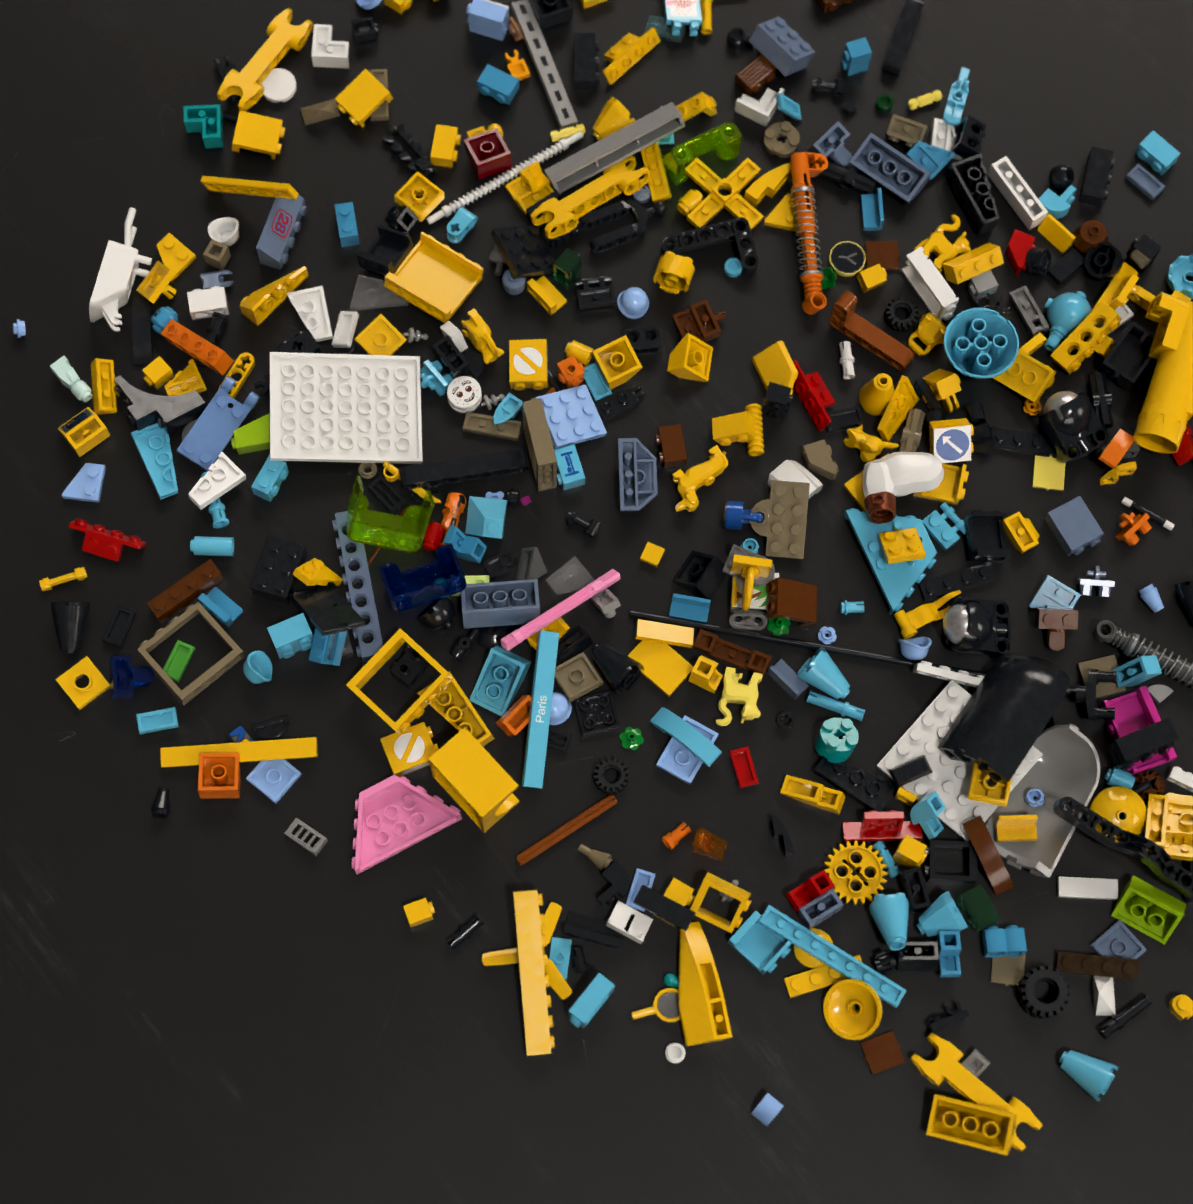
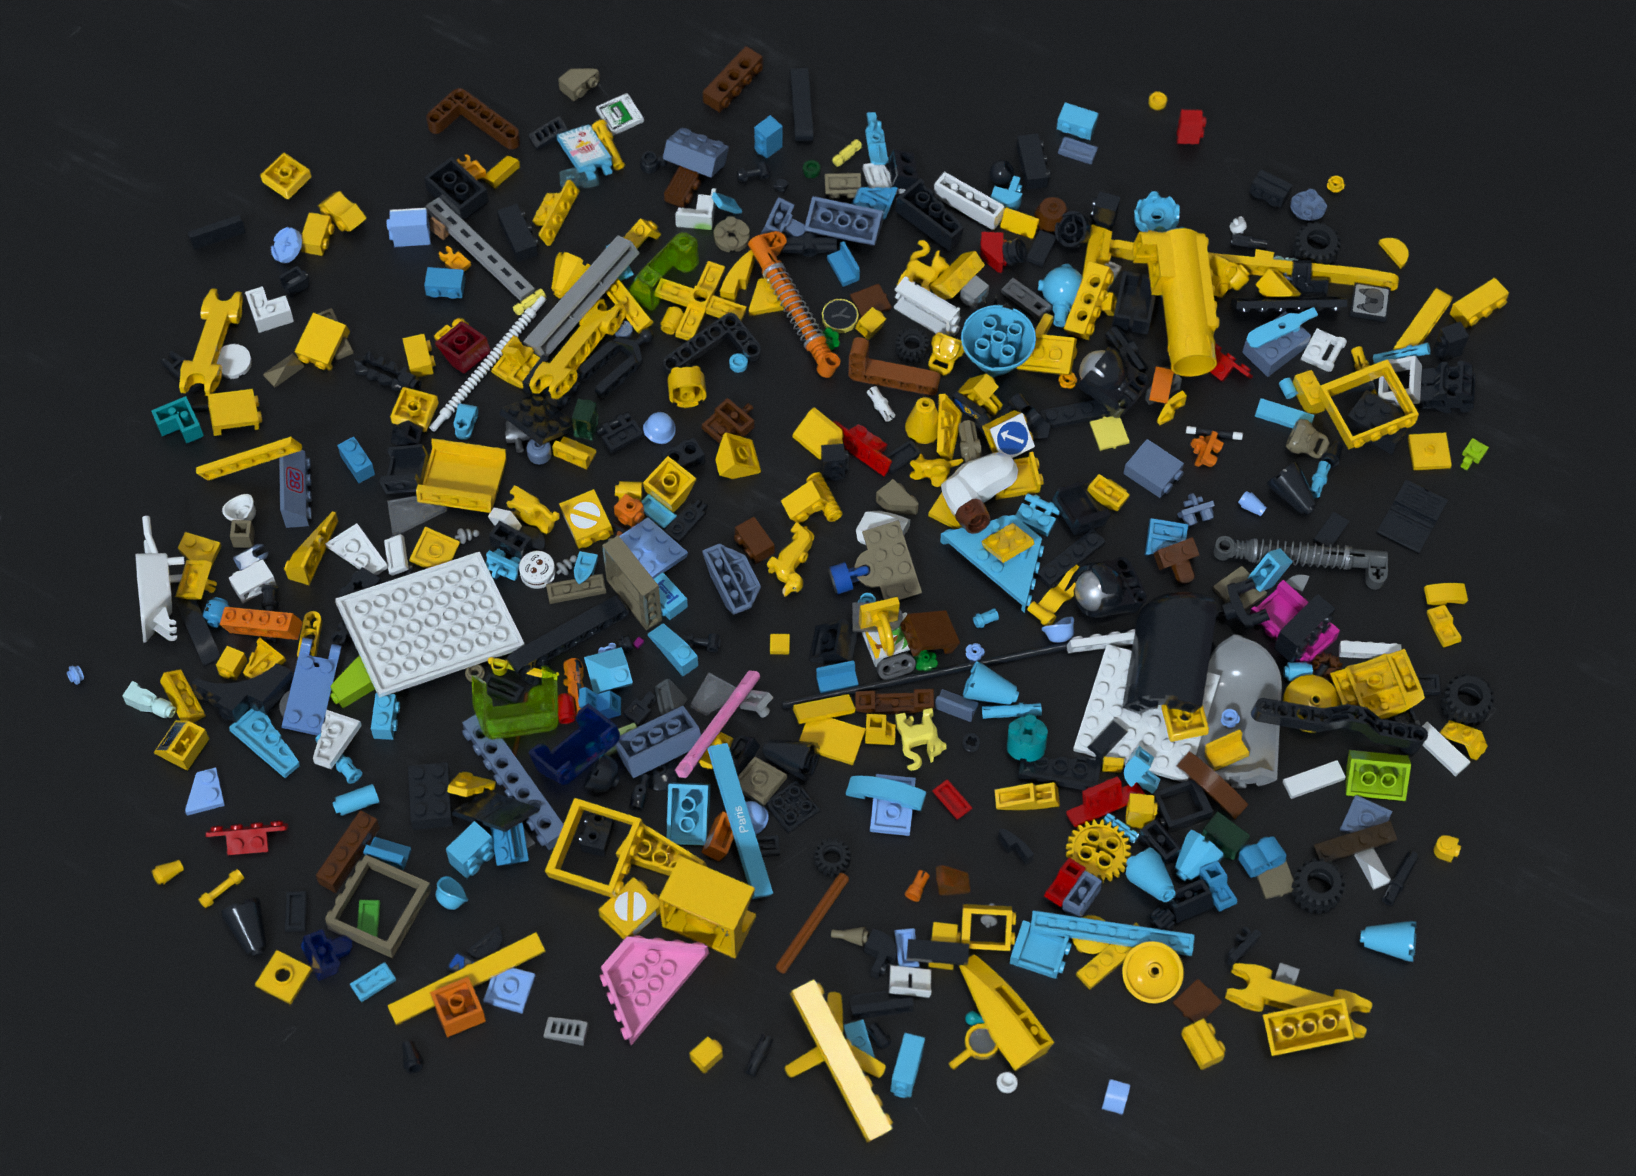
camera: 20 degrees left, 10 degrees down
(22, 544) = (167, 871): none -> yellow cone
(554, 520) = (674, 649): none -> medium azure slope
(628, 742) = (835, 816): green plant -> none
(869, 1095) = (1203, 1044): none -> yellow brick

